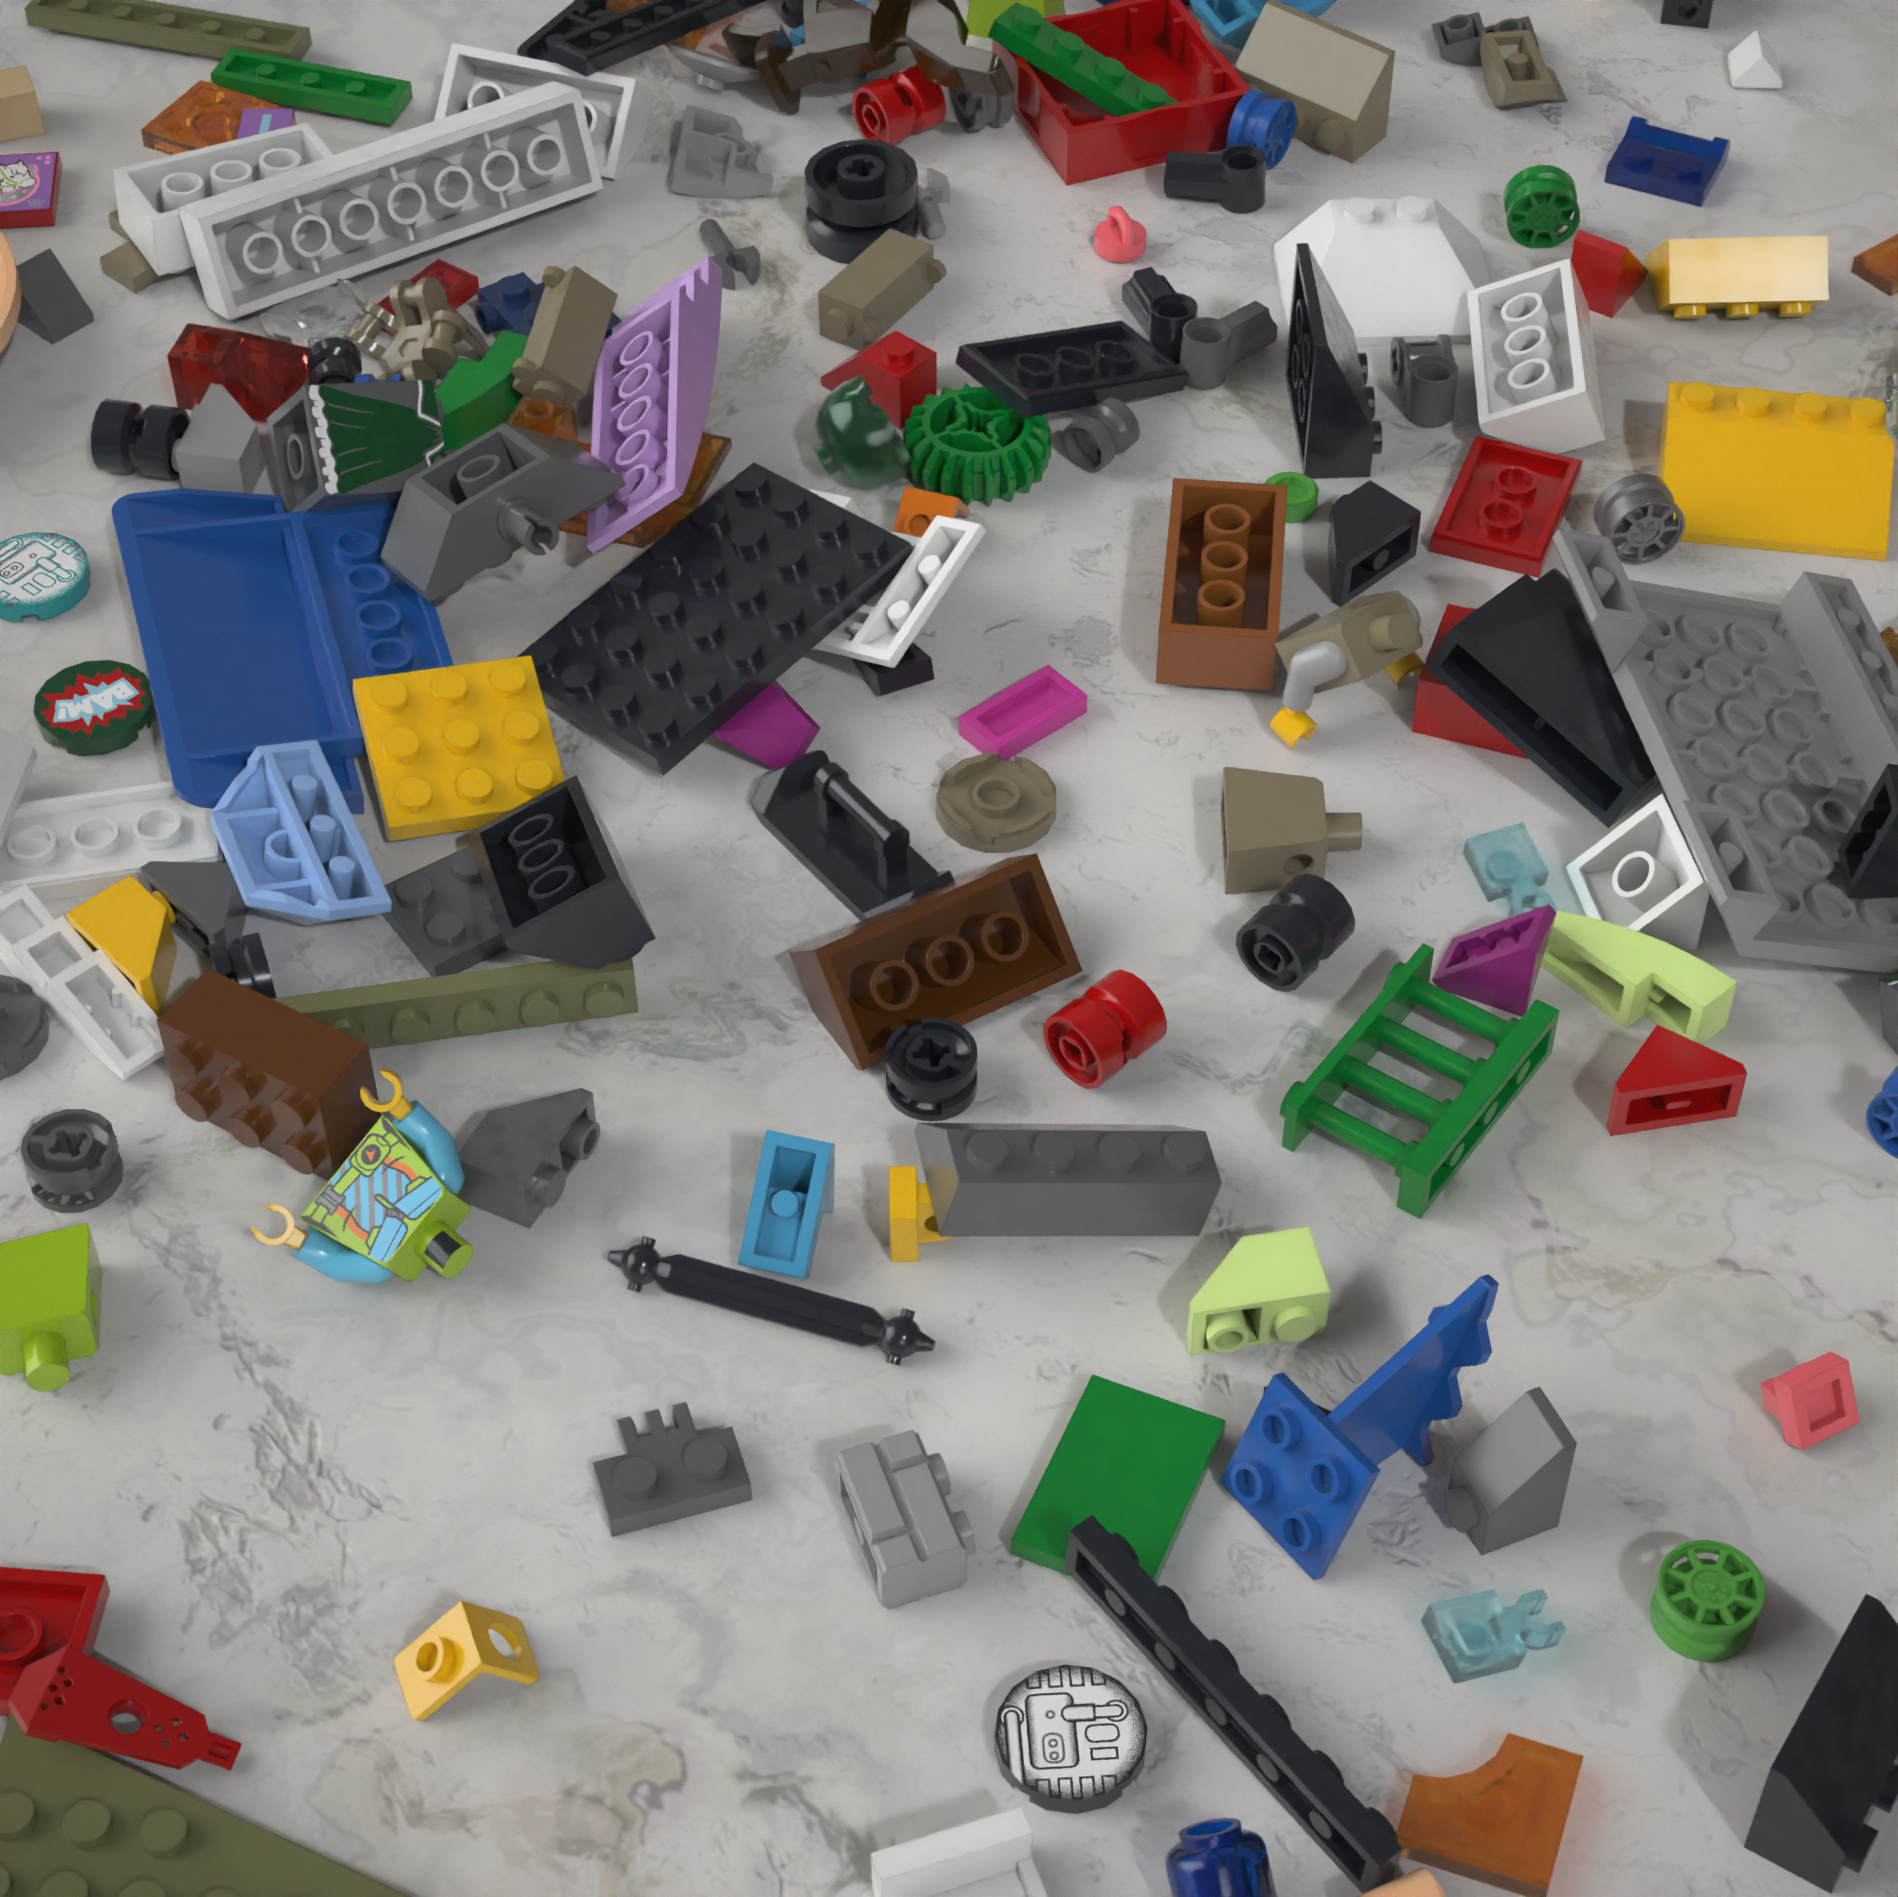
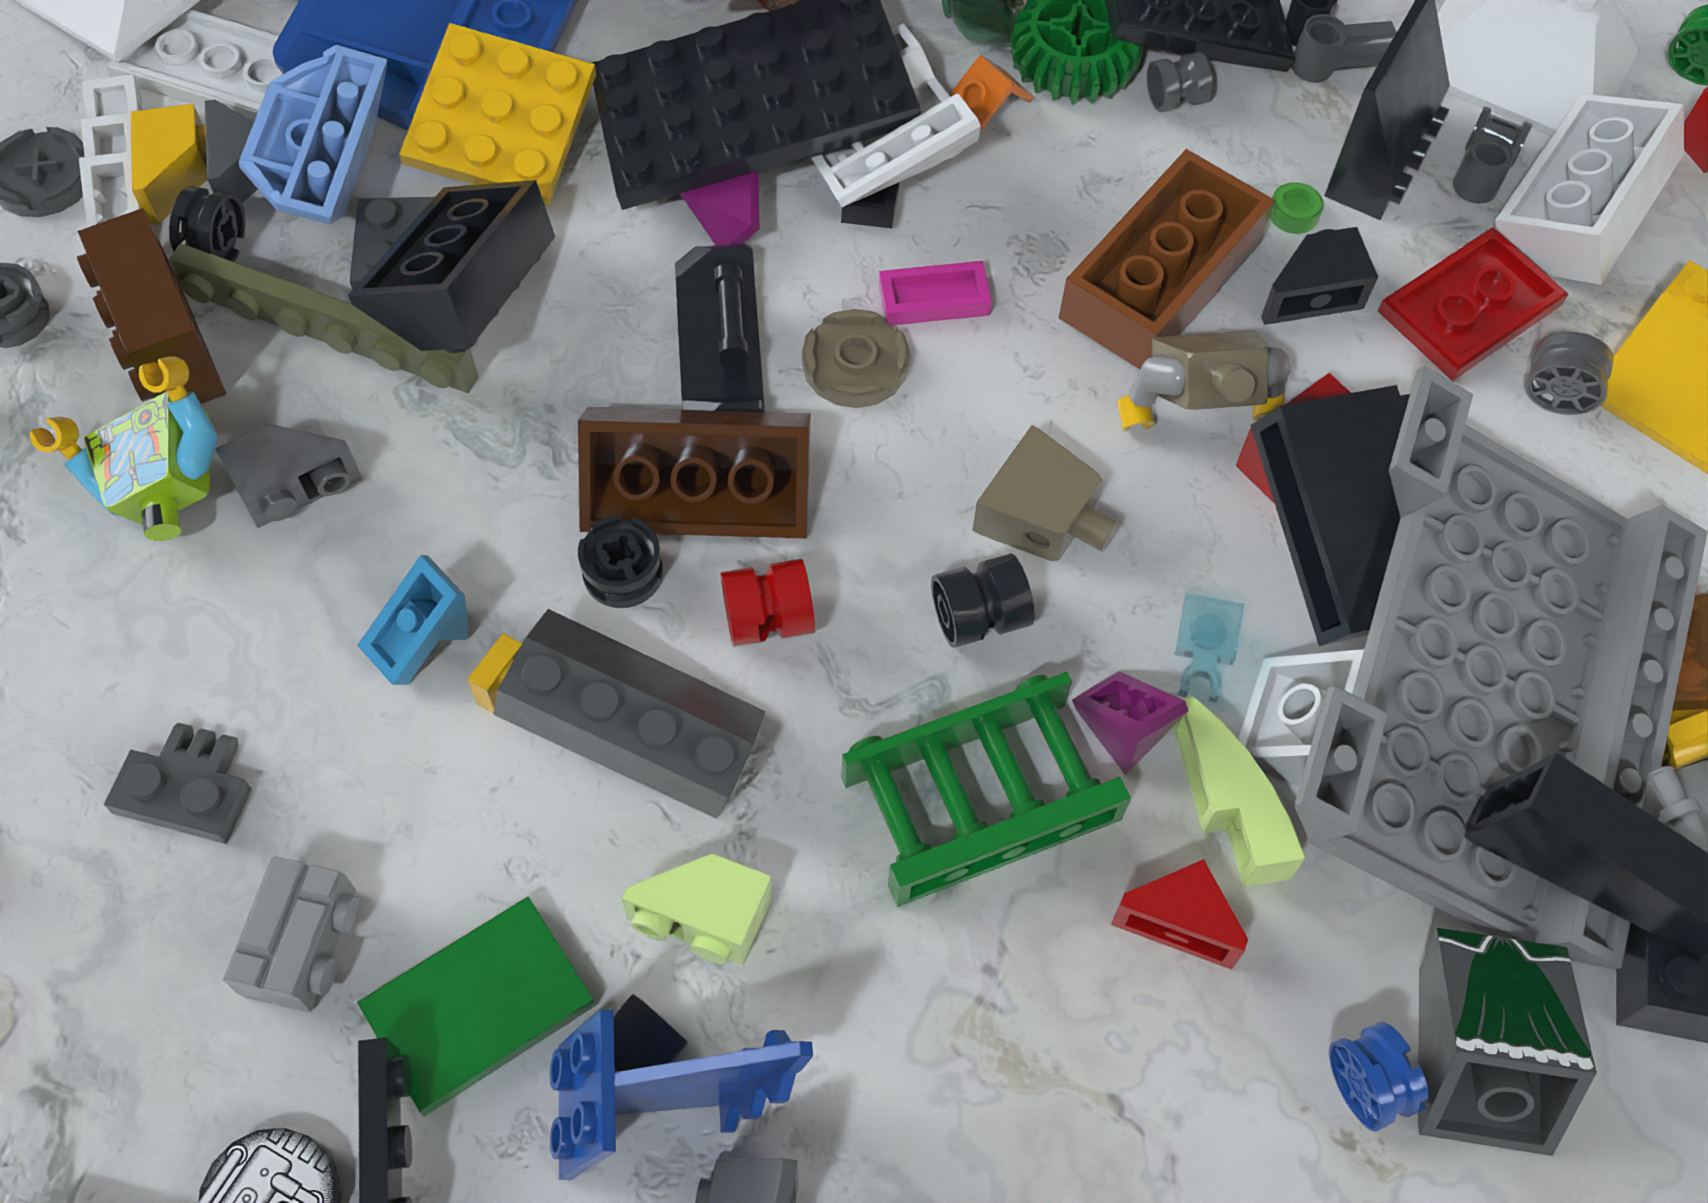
camera: 30 degrees right, 15 degrees up
(772, 1300) = (360, 691): black wheel -> none

